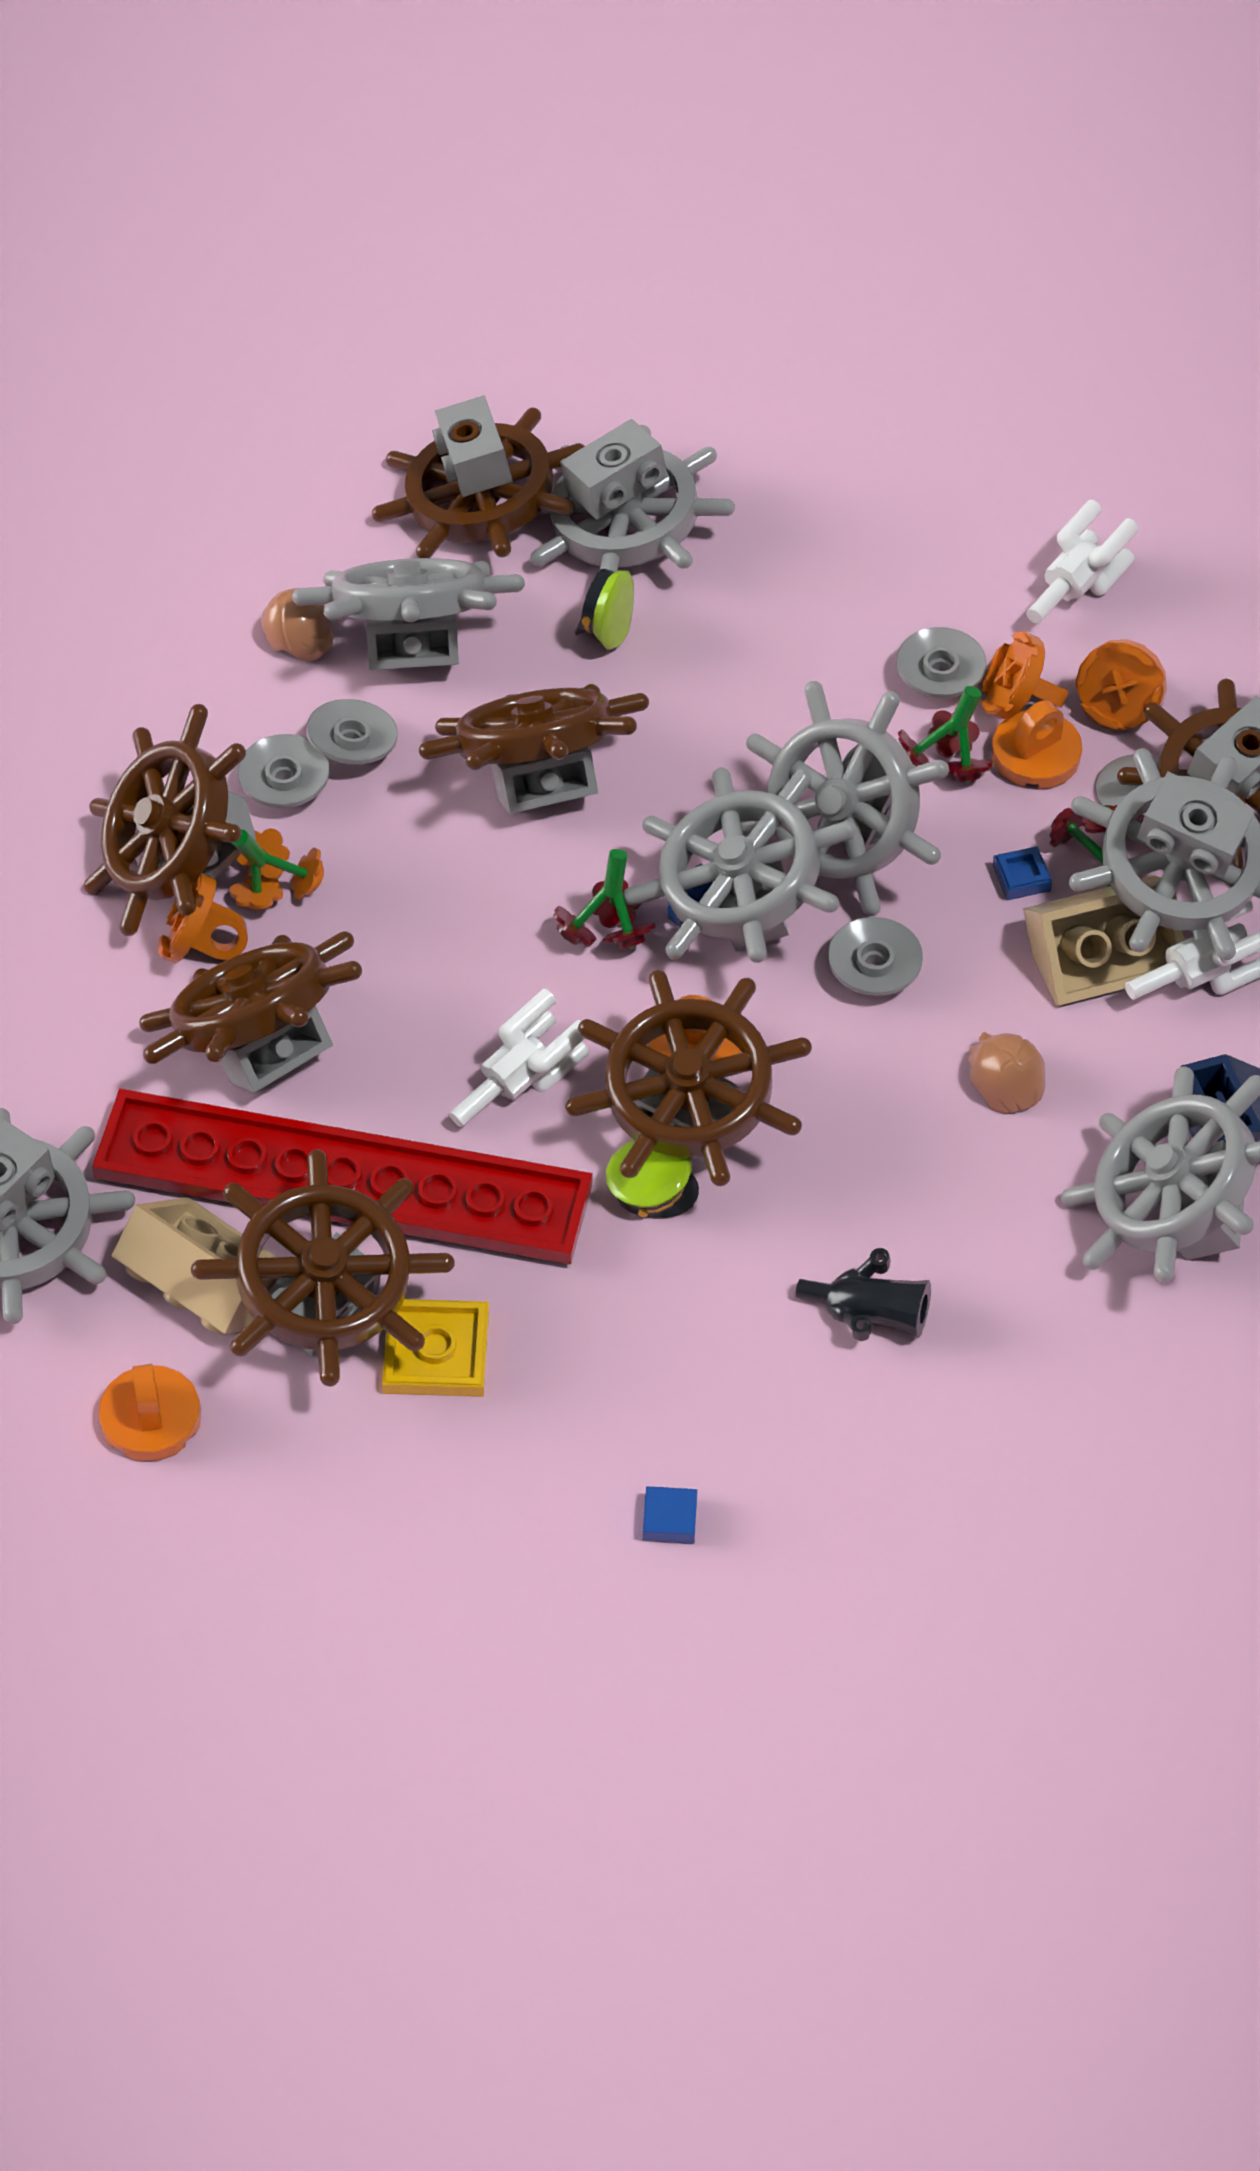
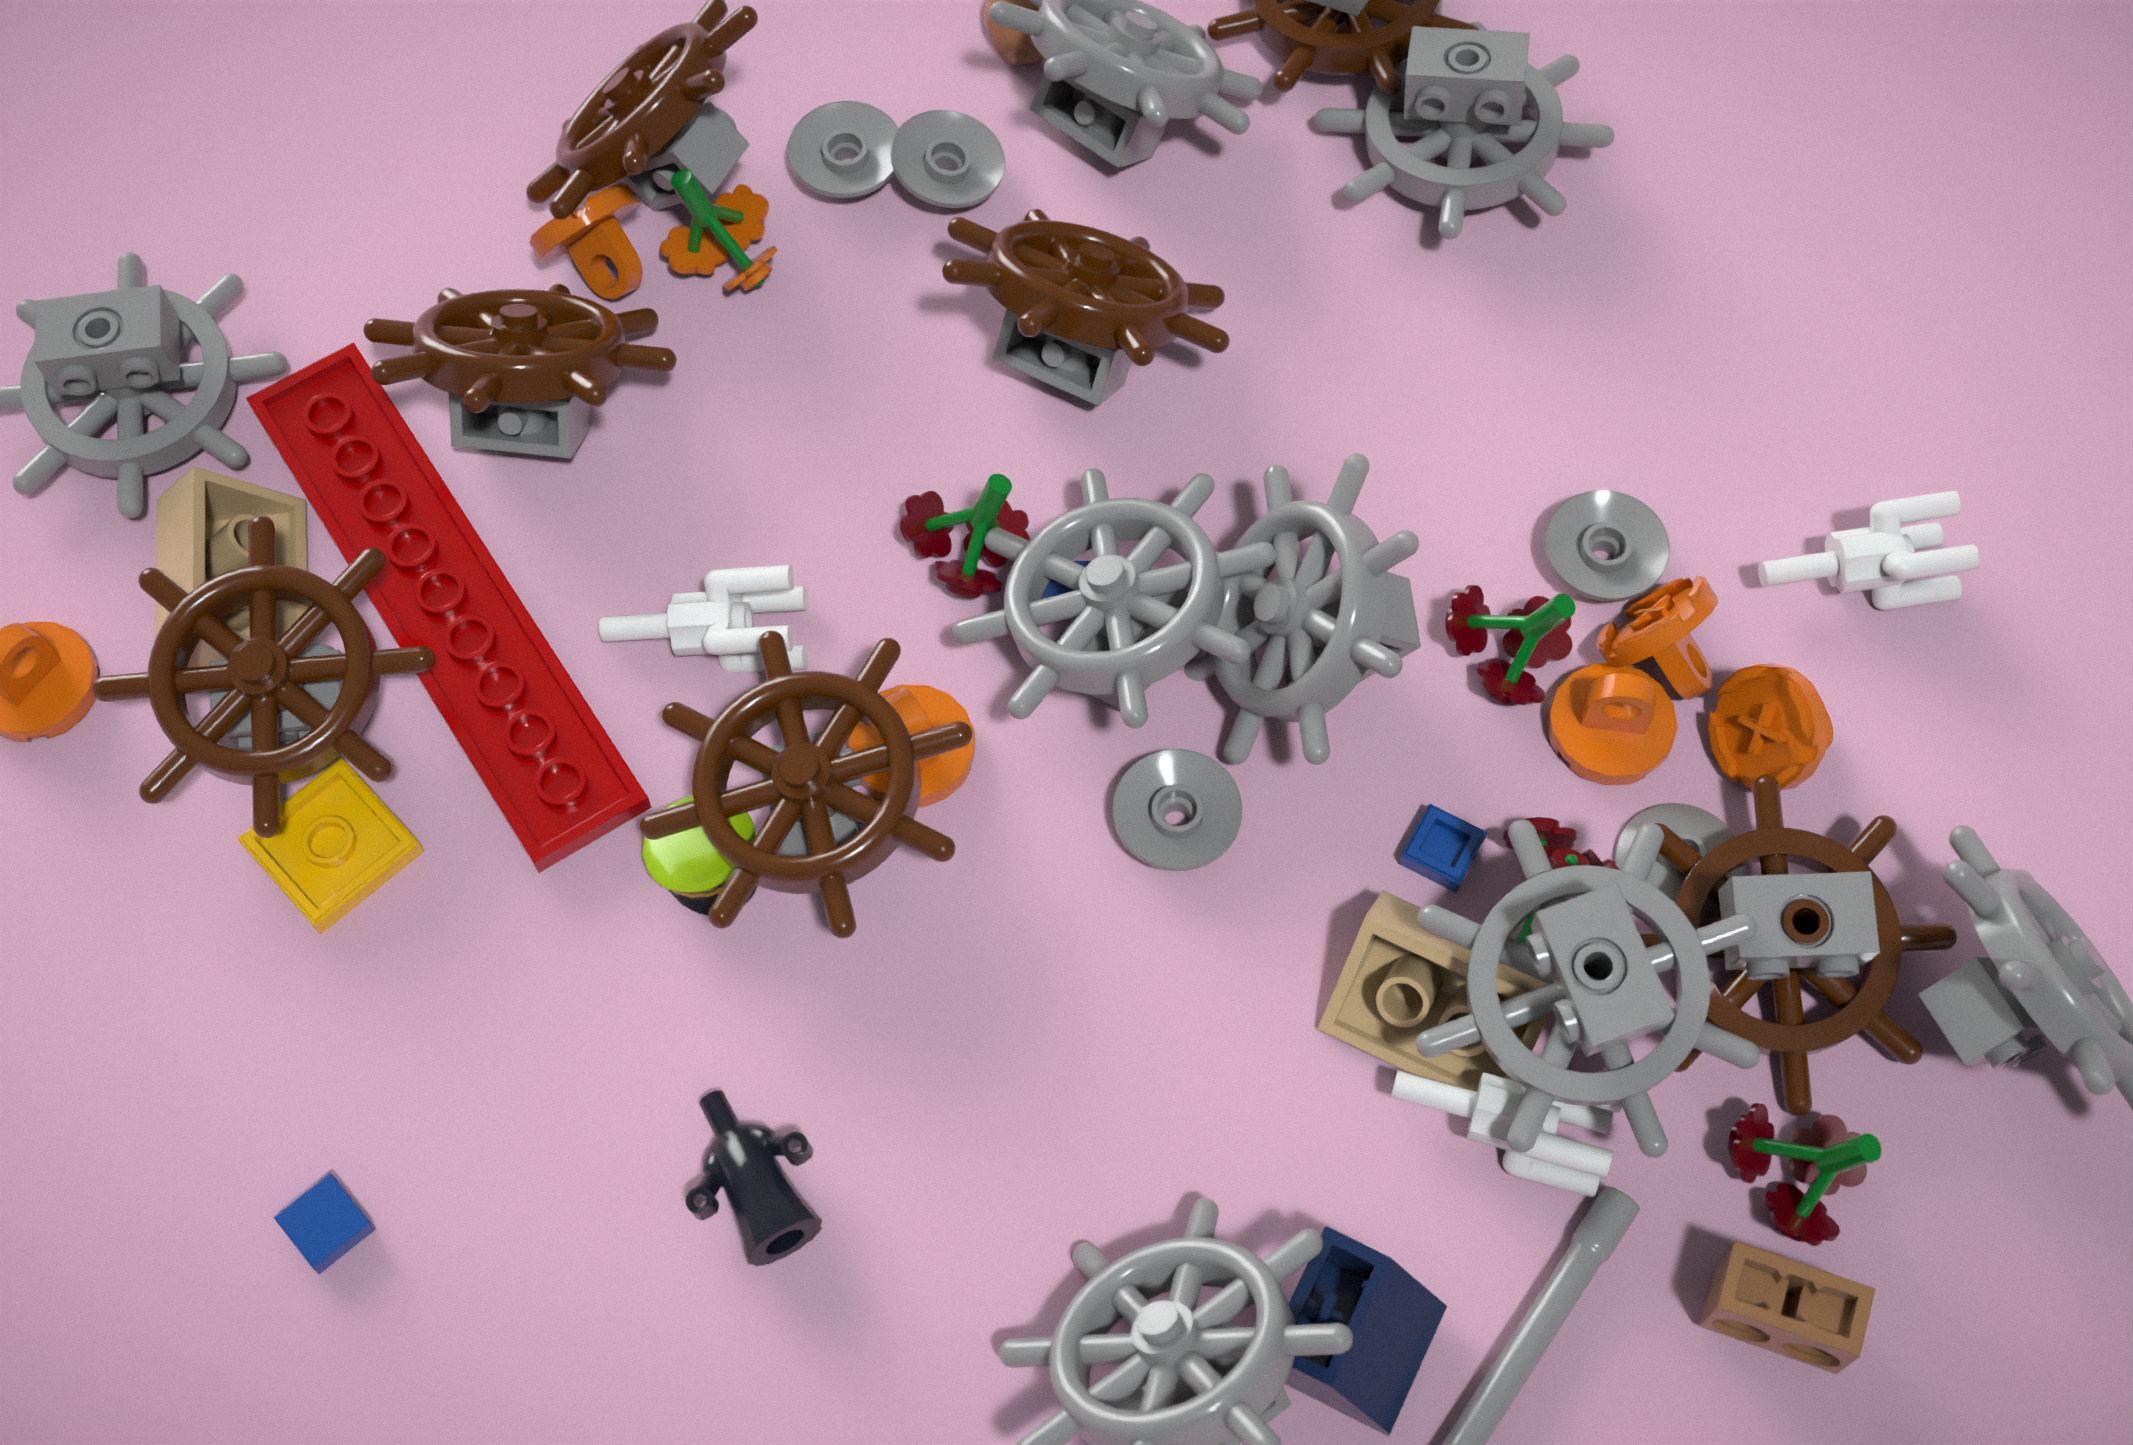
camera: 45 degrees right, 10 degrees up
(608, 608) = (1321, 220): lime piece -> none
(1007, 1072) = (1174, 1056): nougat hair -> none

